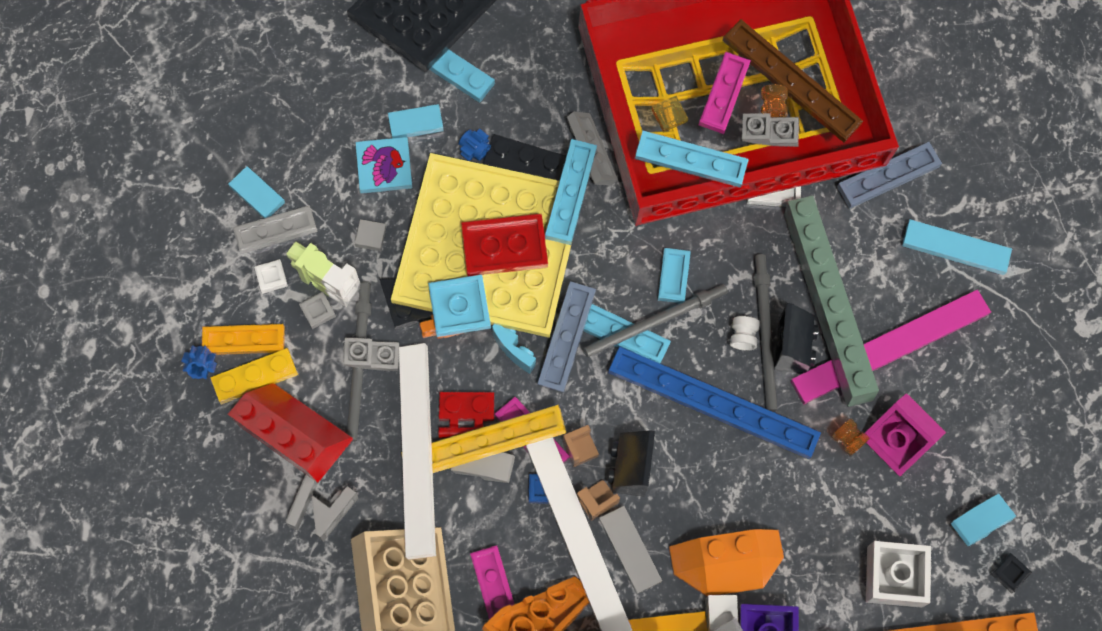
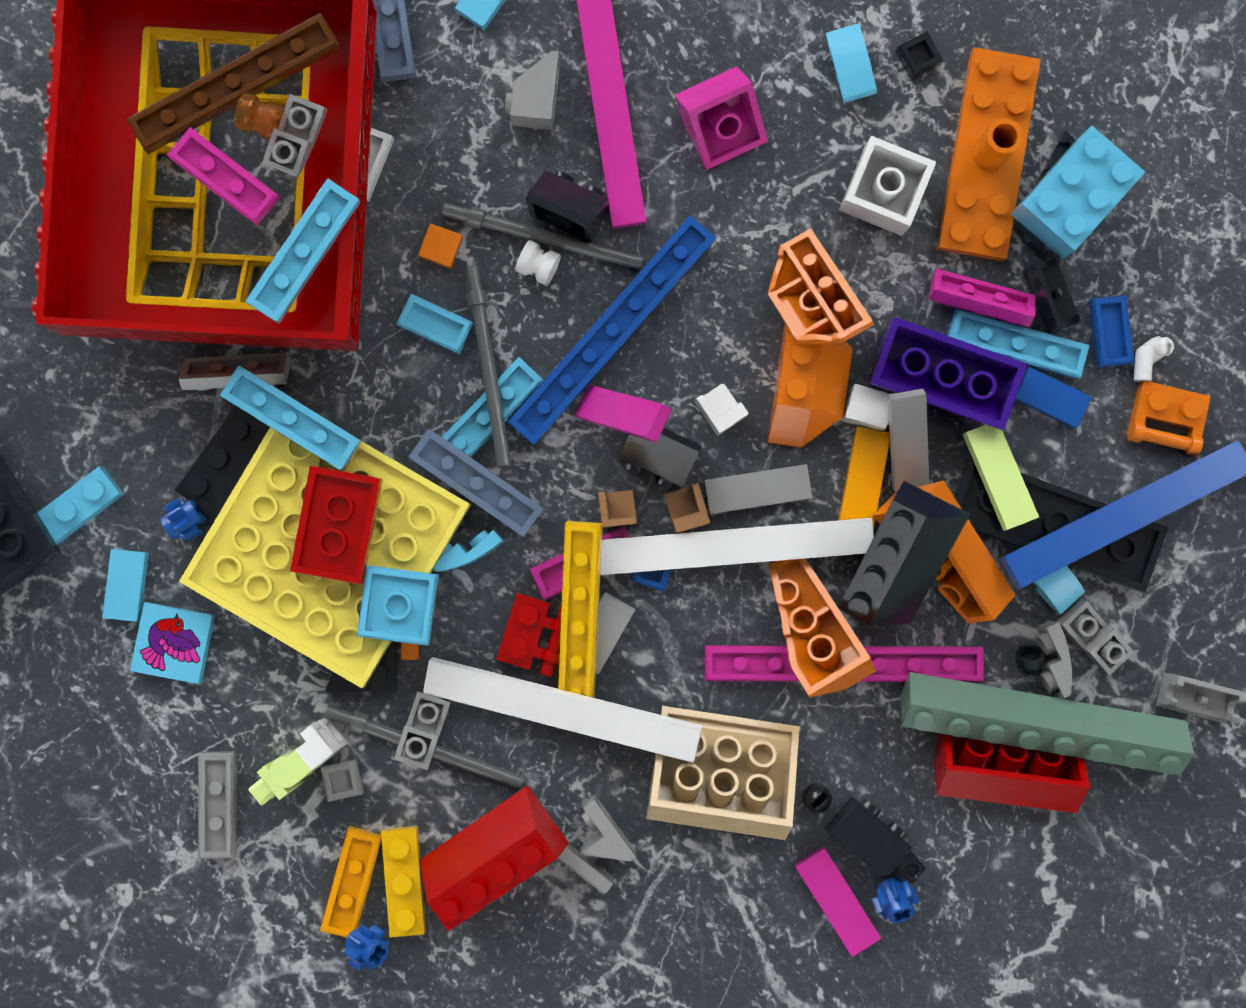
camera: 70 degrees left, 15 degrees up
(256, 193) = (159, 816): medium azure tile -> none
(271, 276) = (279, 826): white tile -> none
(370, 235) = (263, 686): light grey tile -> none
(653, 421) = (623, 413): none -> dark pink tile
(669, 114) = (231, 258): clear yellow tile -> none
(681, 502) = (721, 409): none -> white panel
(732, 262) = (440, 246): none -> orange tile
(795, 541) = (814, 294): none -> orange wedge
(830, 302) = (530, 143): sand green brick -> none
(850, 437) = (706, 181): clear orange wheel -> none
(871, 294) = (535, 94): none -> light grey slope

